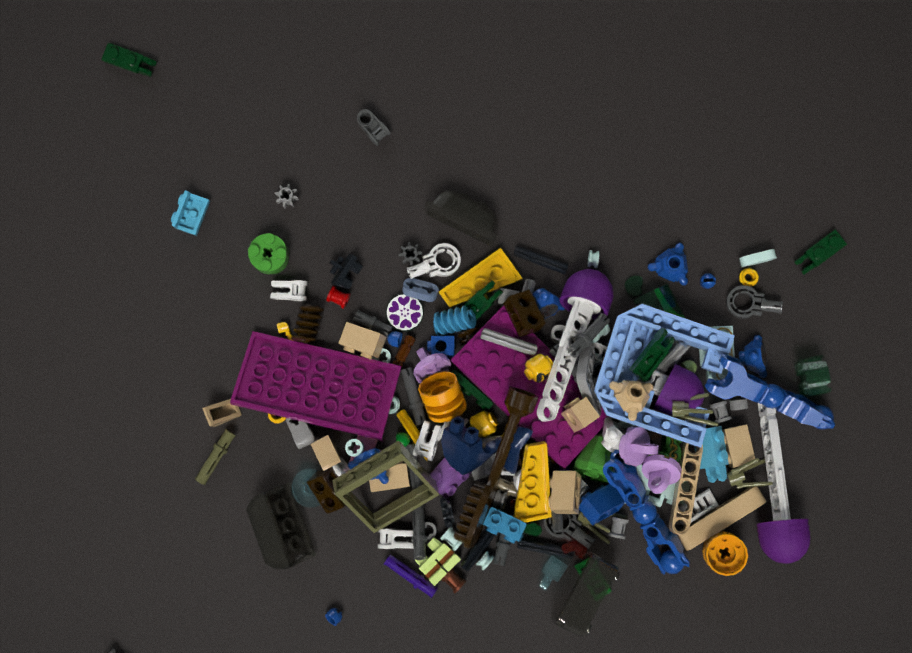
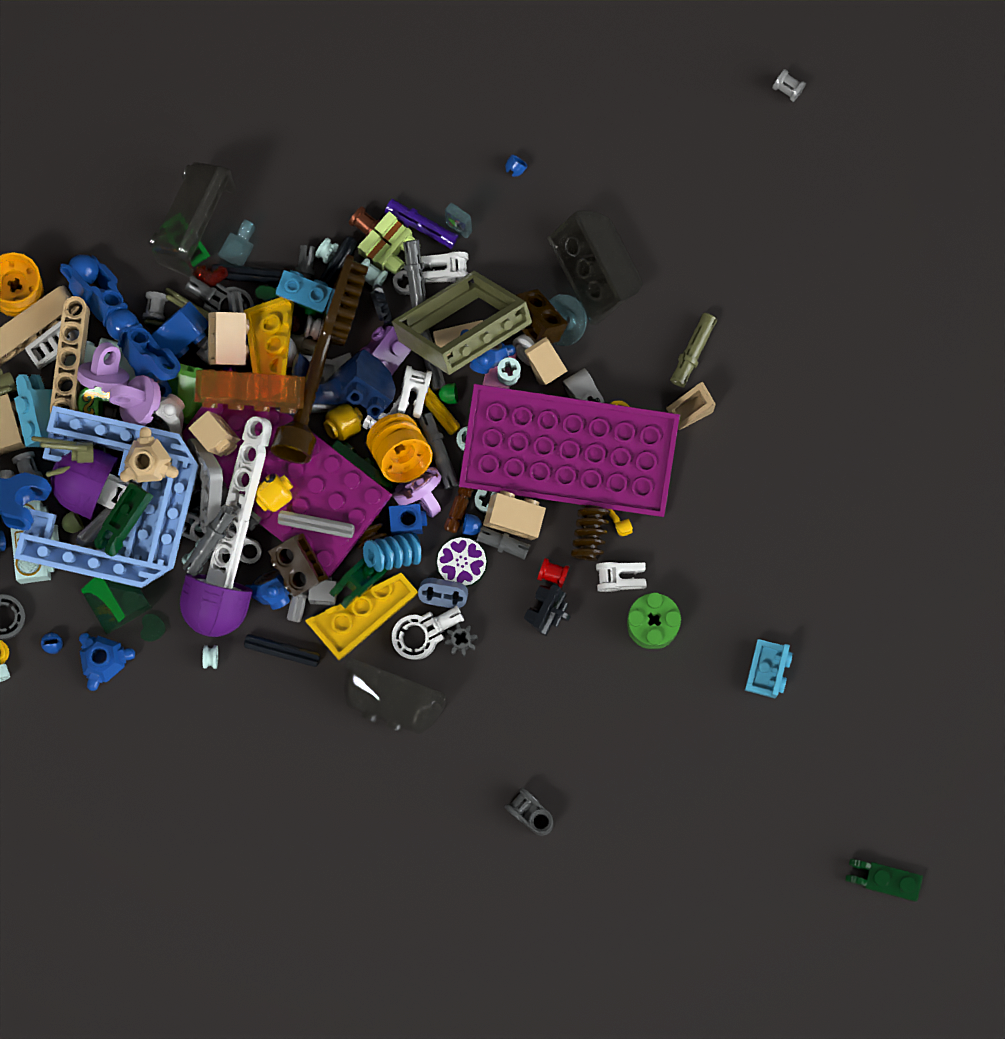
camera: 175 degrees right, 5 degrees down
(280, 194) = (639, 697): light grey gear -> none
(381, 573) = (458, 220): none -> clear light blue tile
(552, 443) = (249, 389): none -> clear orange wedge

